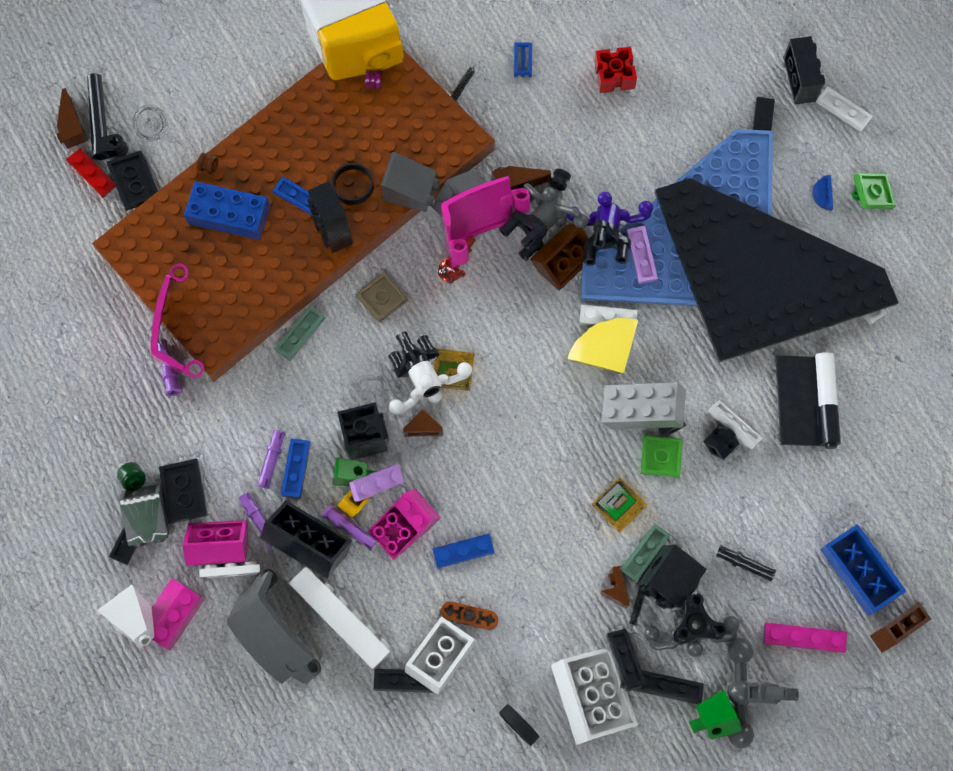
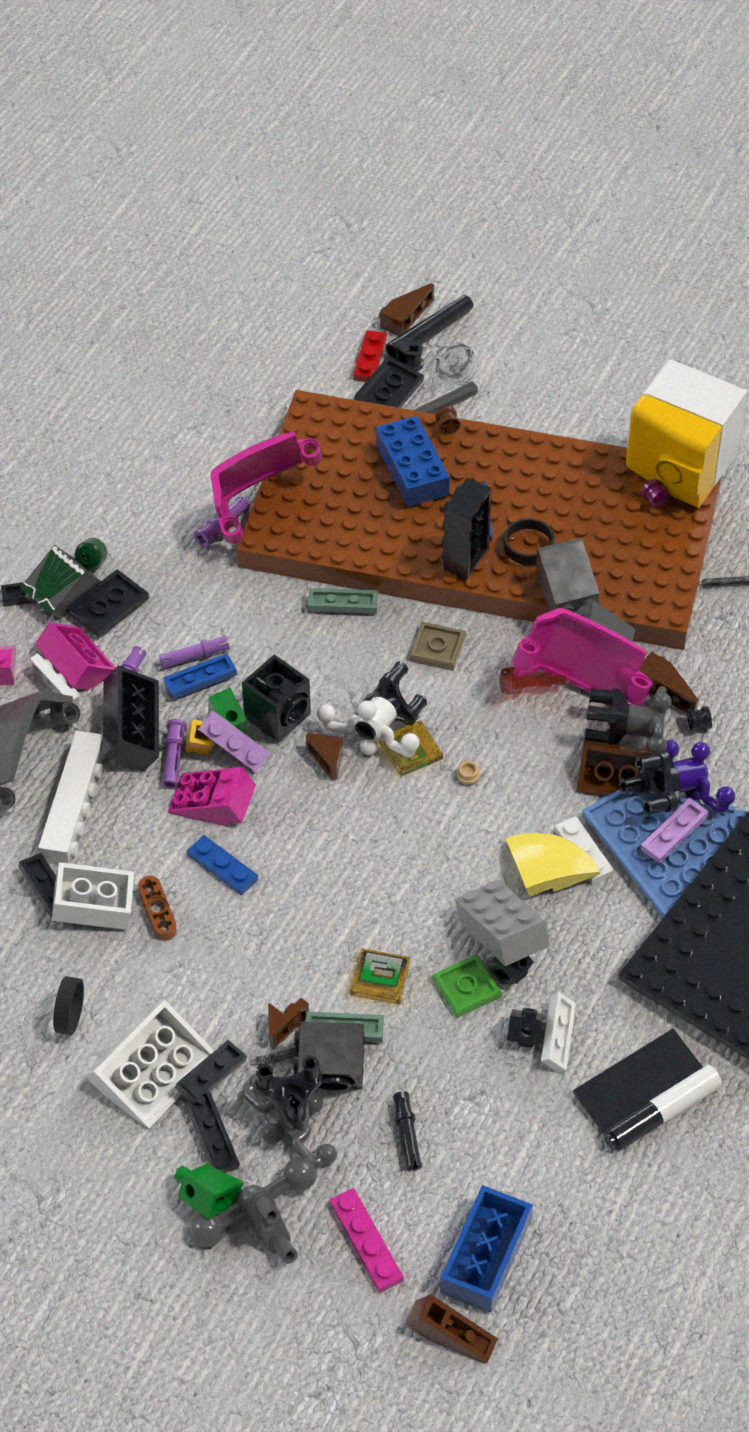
camera: 55 degrees right, 20 degrees down
(173, 150) = (450, 398): none -> dark grey axle
(500, 347) = (468, 772): none -> tan plate

